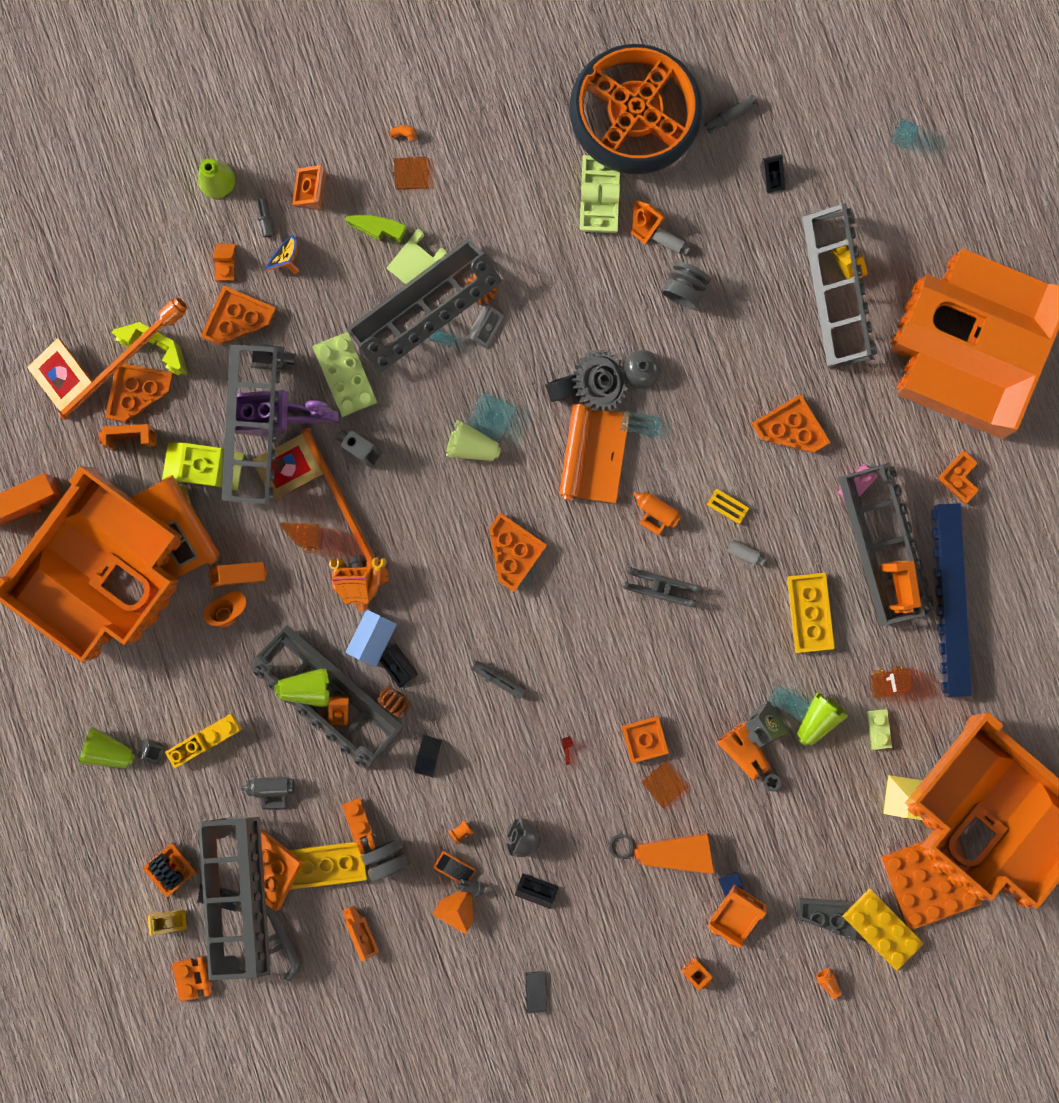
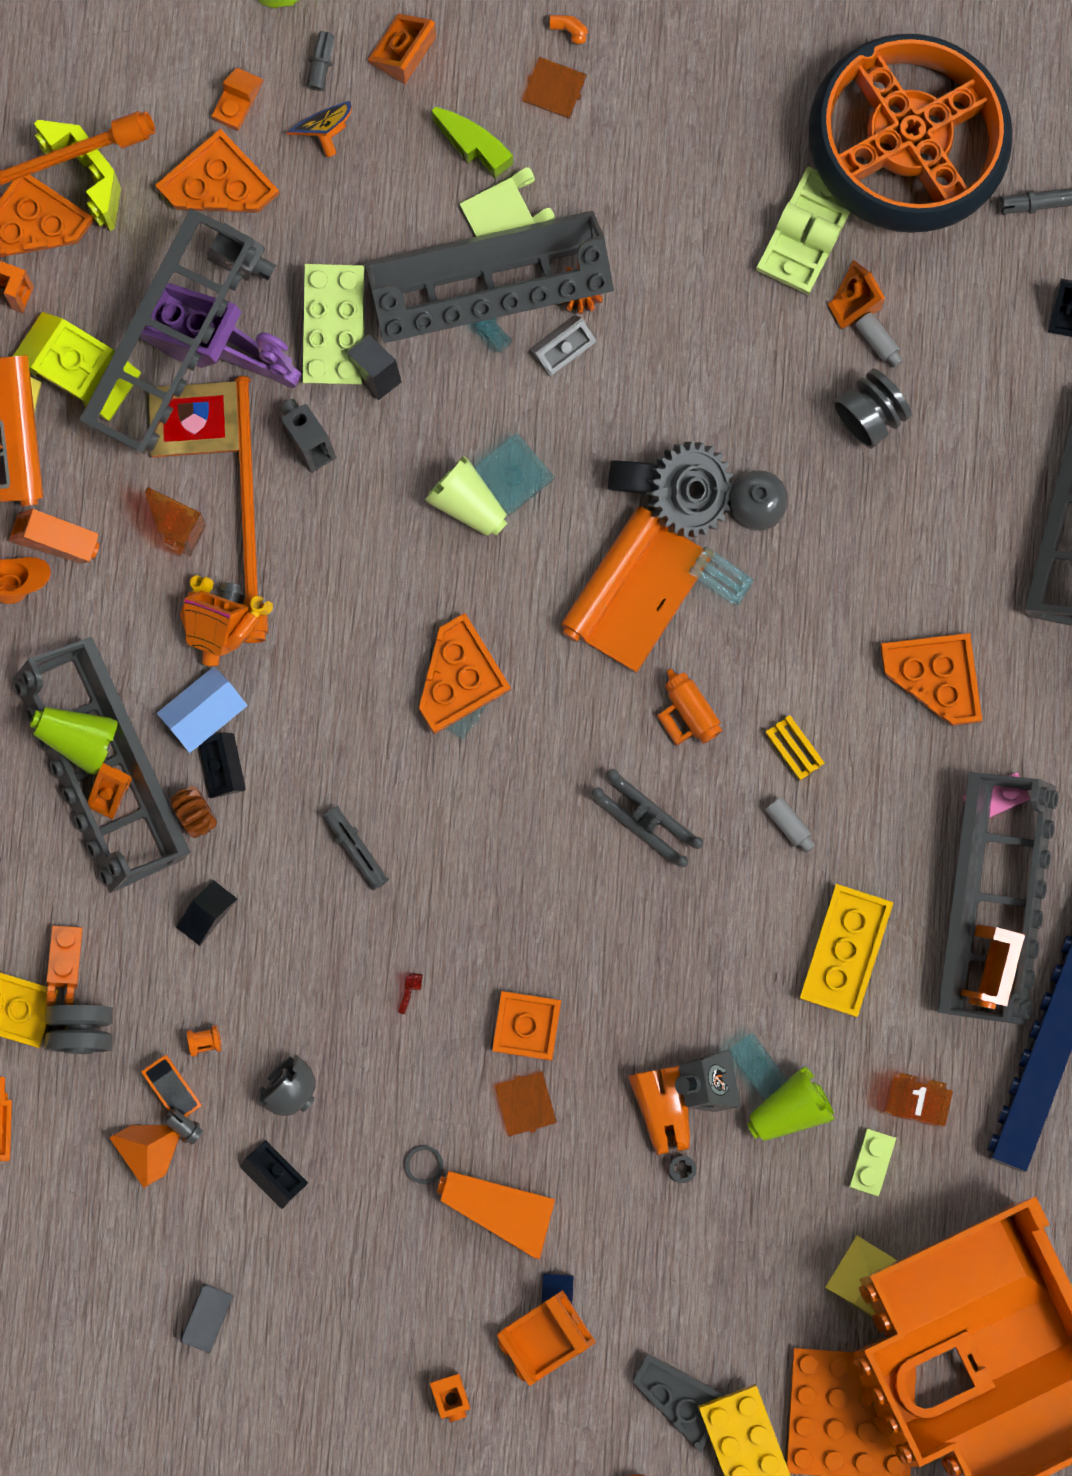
camera: 20 degrees right, 5 degrees down
(380, 388) = (375, 366): none -> black slope

